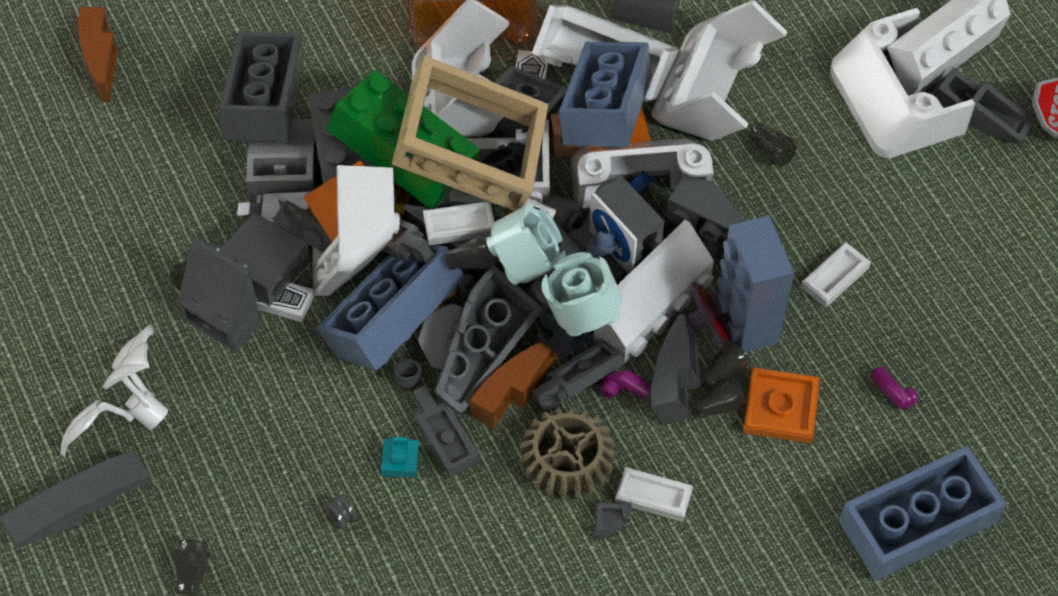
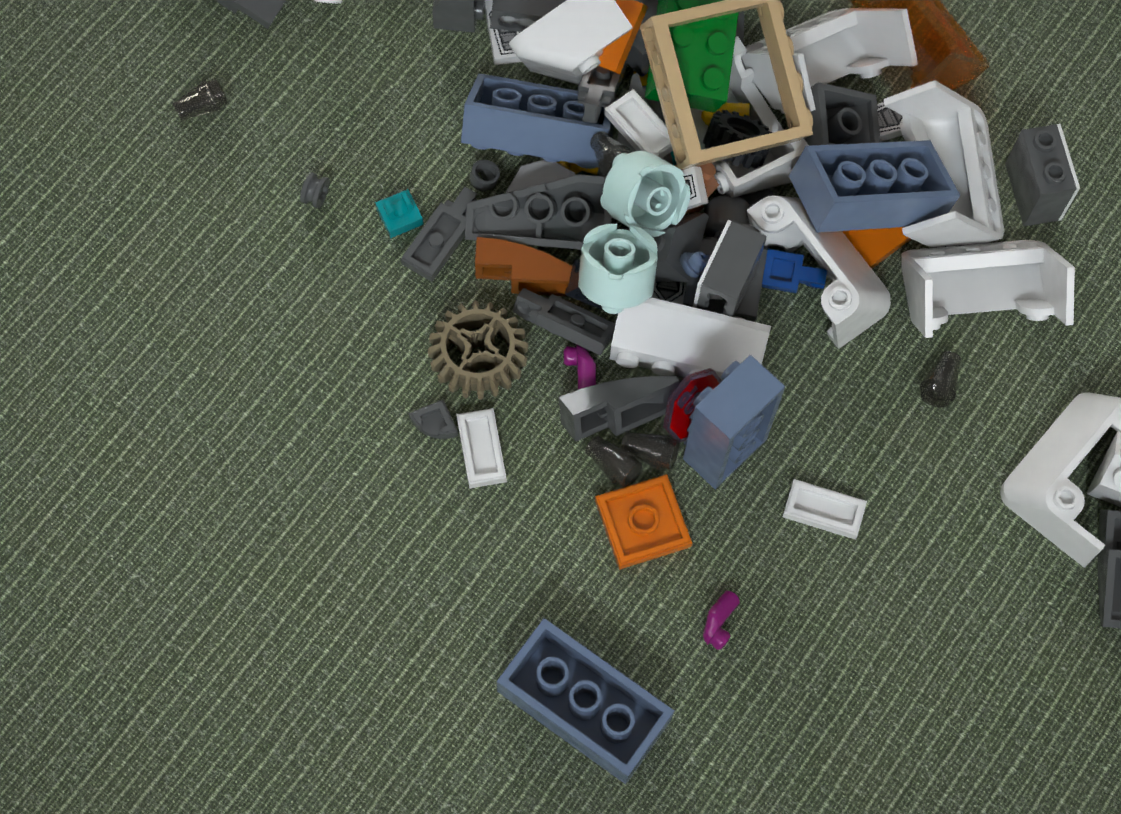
camera: 60 degrees right, 10 degrees up
(707, 211) = (799, 345): dark grey slope -> none

